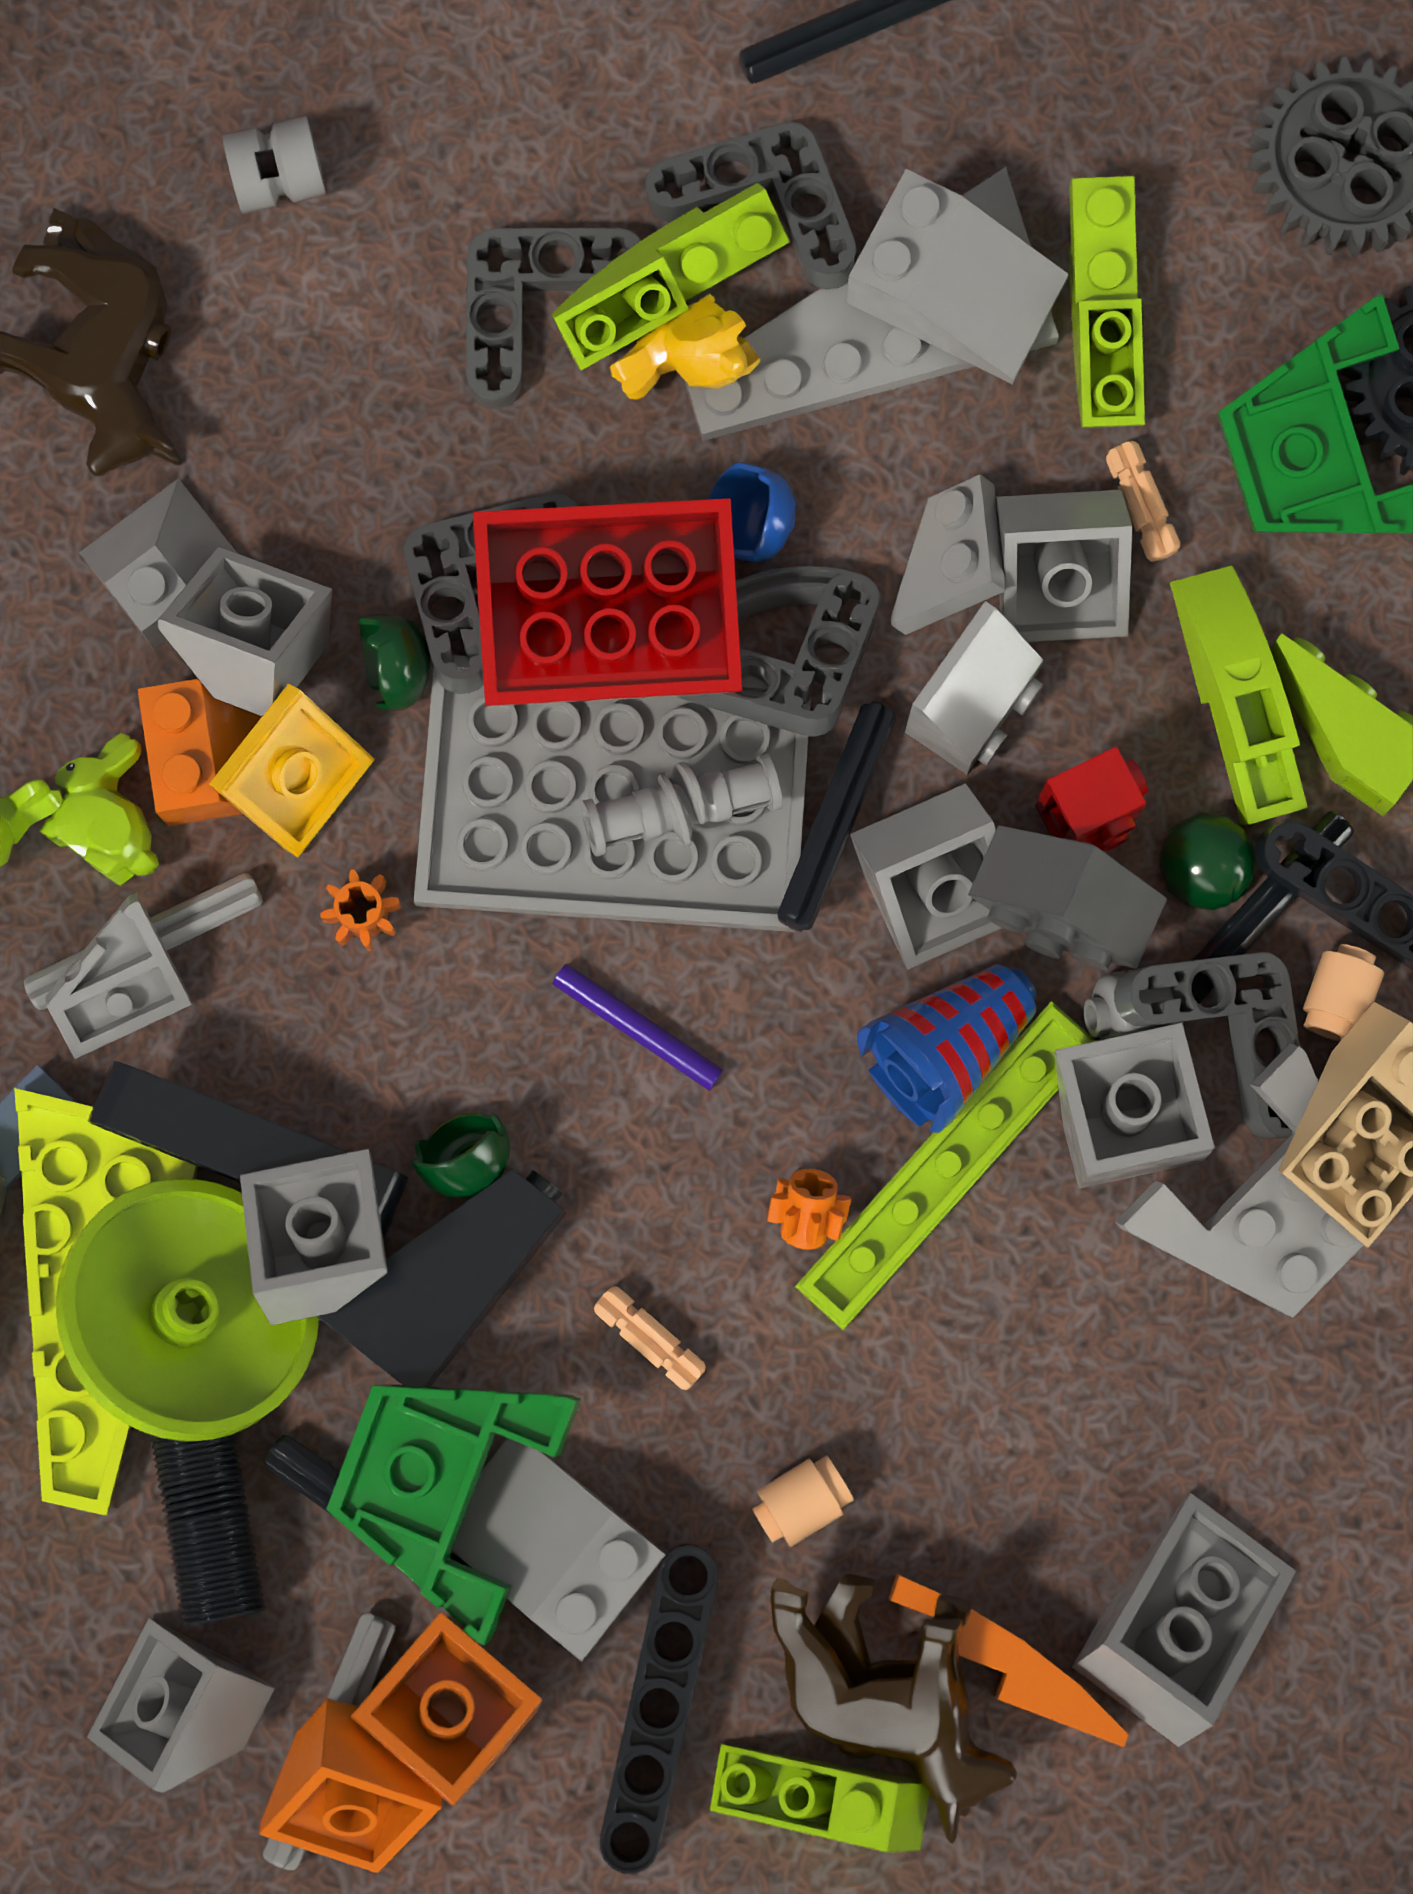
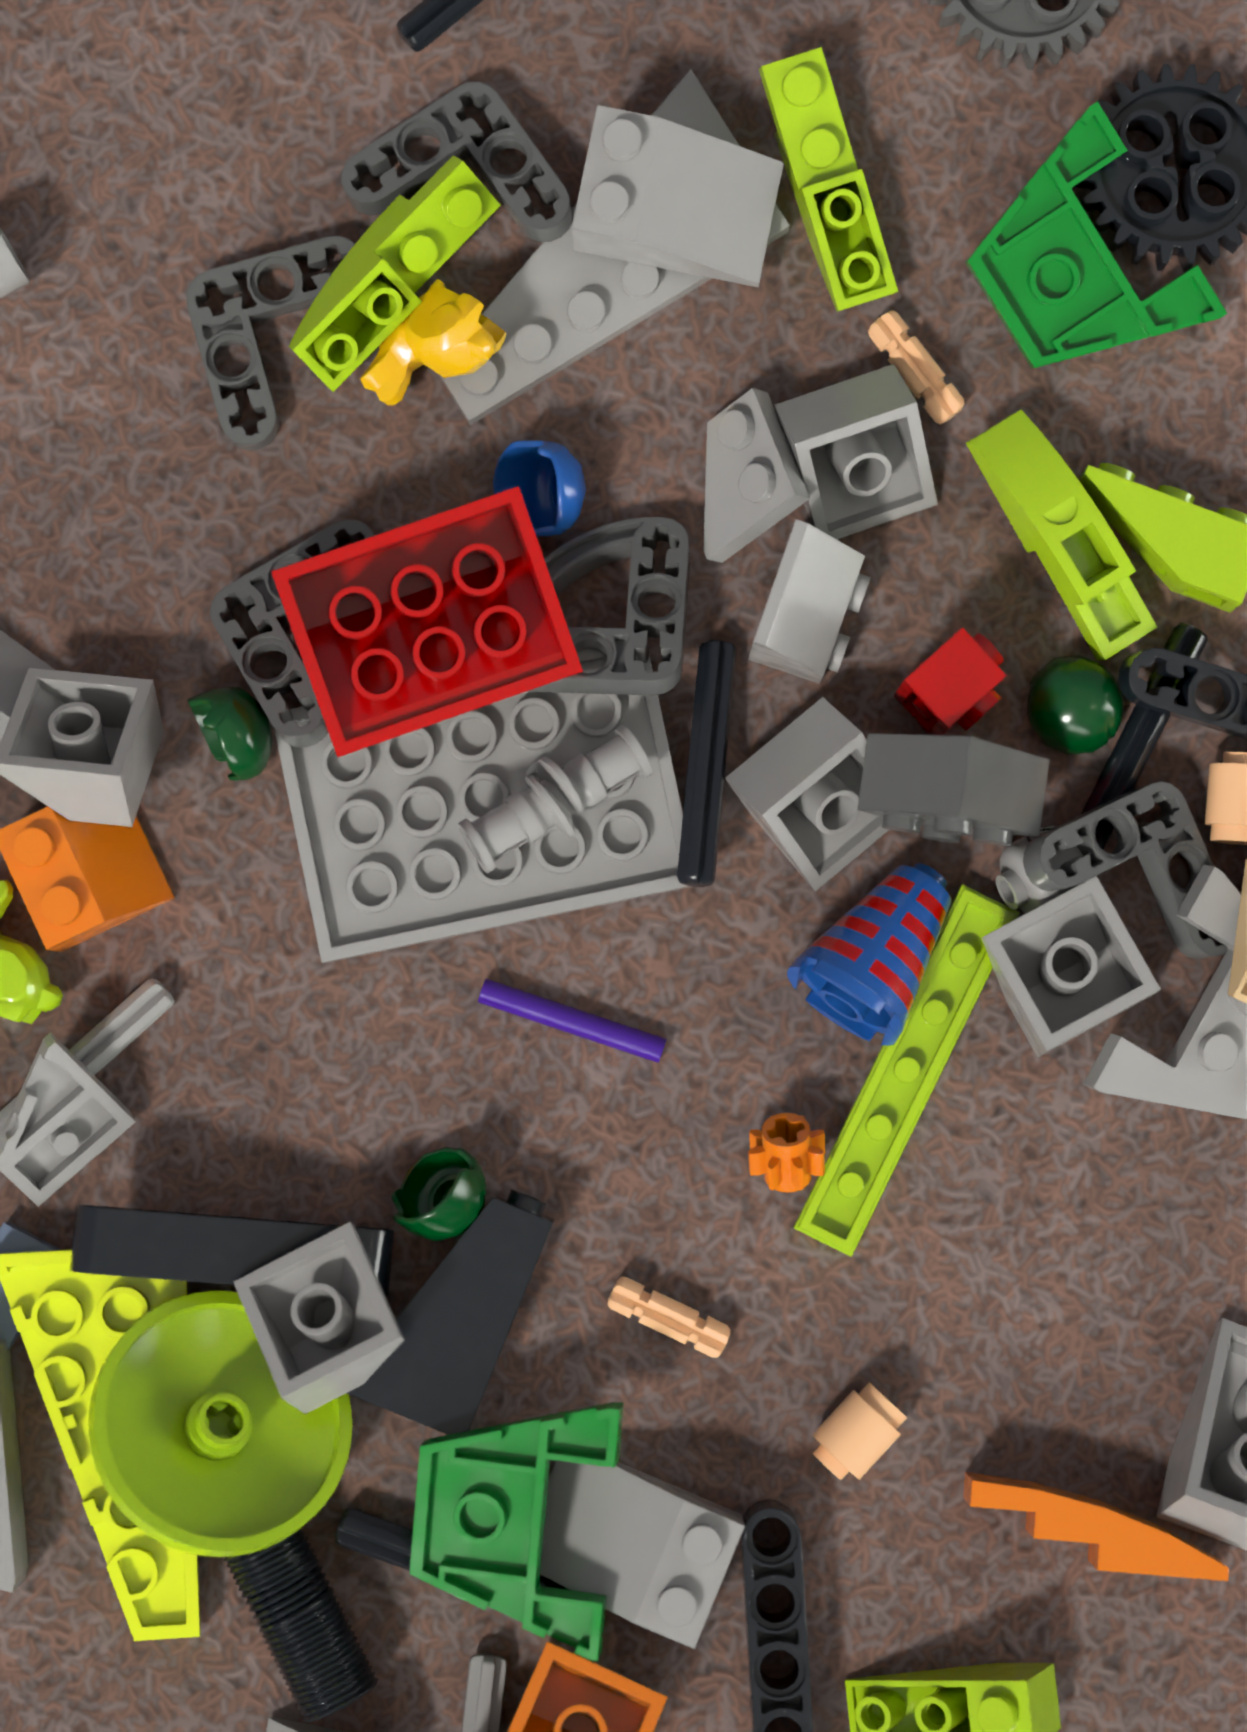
camera: 15 degrees left, 5 degrees up
(292, 770) = (166, 869): yellow tile -> none
(376, 917) = (255, 978): orange gear -> none
(888, 1705) = (996, 1604): dark brown animal -> none

